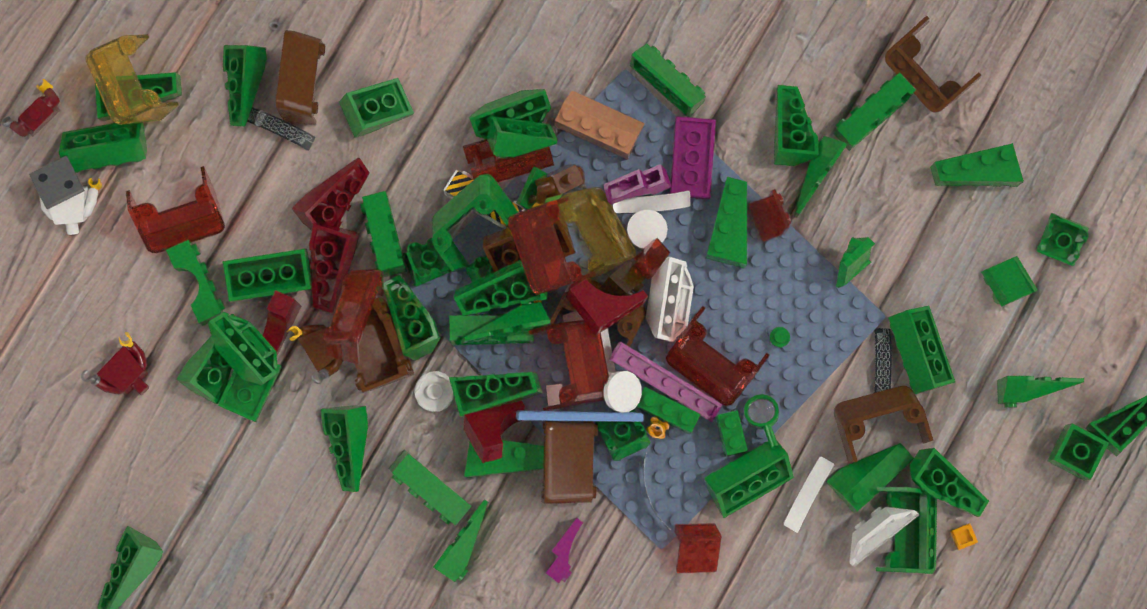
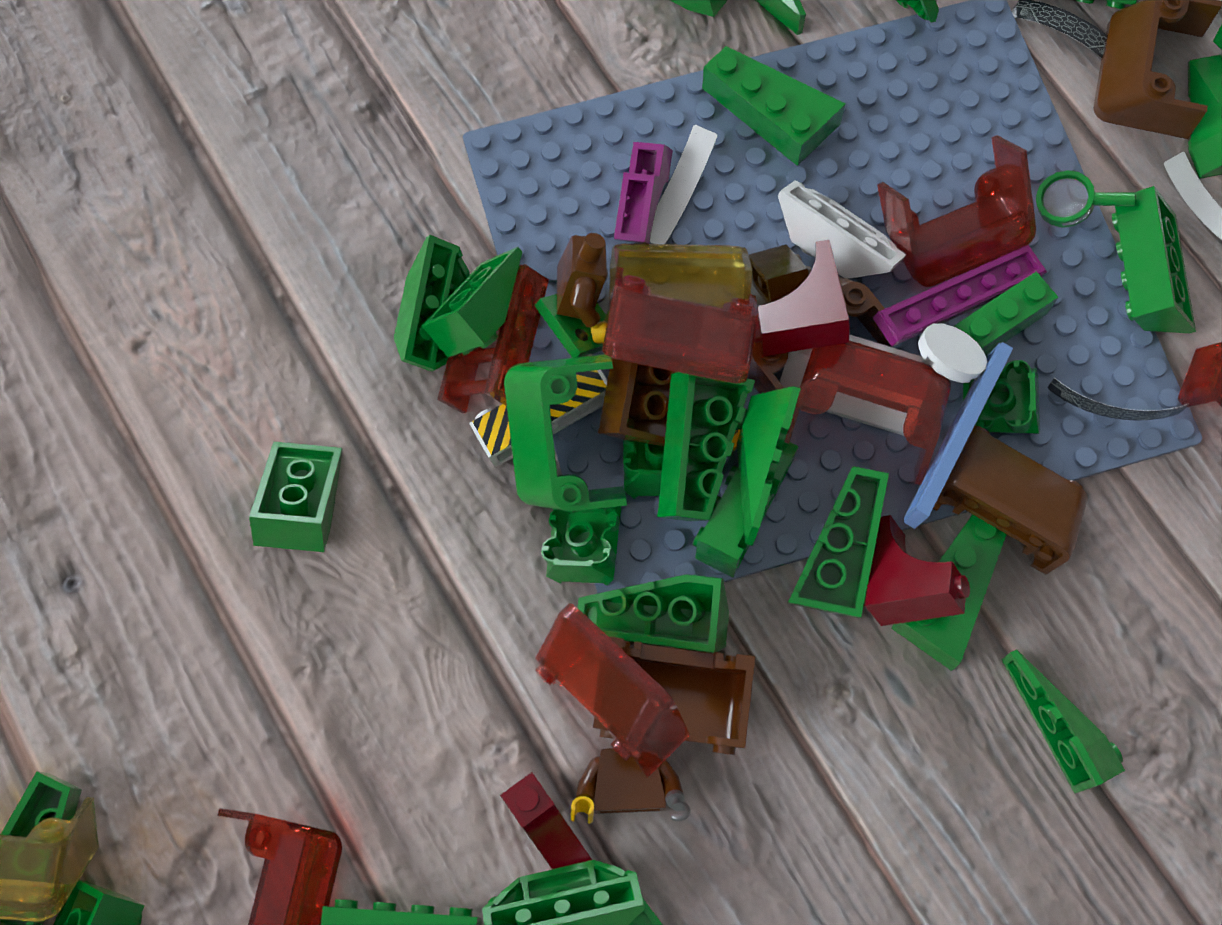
camera: 55 degrees left, 10 degrees down
(244, 73) = (112, 666): green wedge -> none
(266, 274) = (459, 805): green slope -> none
(281, 128) = (230, 661): black sticker -> none
(297, 77) = (181, 575): reddish brown windscreen -> none
(331, 256) = (492, 690): dark red wedge -> none
(332, 198) = (399, 652): dark red wedge -> none
(347, 433) = (795, 820): green wedge -> none
(383, 233) = (499, 586): green wedge -> none
(429, 487) = (944, 731): green wedge -> none
(434, 391) = (790, 644): white tile -> none
(553, 394) = (894, 465): white sticker -> none
(560, 568) = (1166, 597): magenta slope -> none
(599, 124) = (525, 200): nougat slope -> none
(646, 227) = (713, 215): white tile -> none
(651, 258) = (762, 226): clear red slope -> none
(655, 432) = (1028, 345): light orange plate -> none
(667, 80) = (516, 85): green slope -> none
(693, 156) = (641, 105): magenta tile -> none
(731, 433) = (1080, 251): green brick -> none
(770, 217) = (791, 42): clear red bracket -> none
(779, 337) = (966, 125): green plate -> none

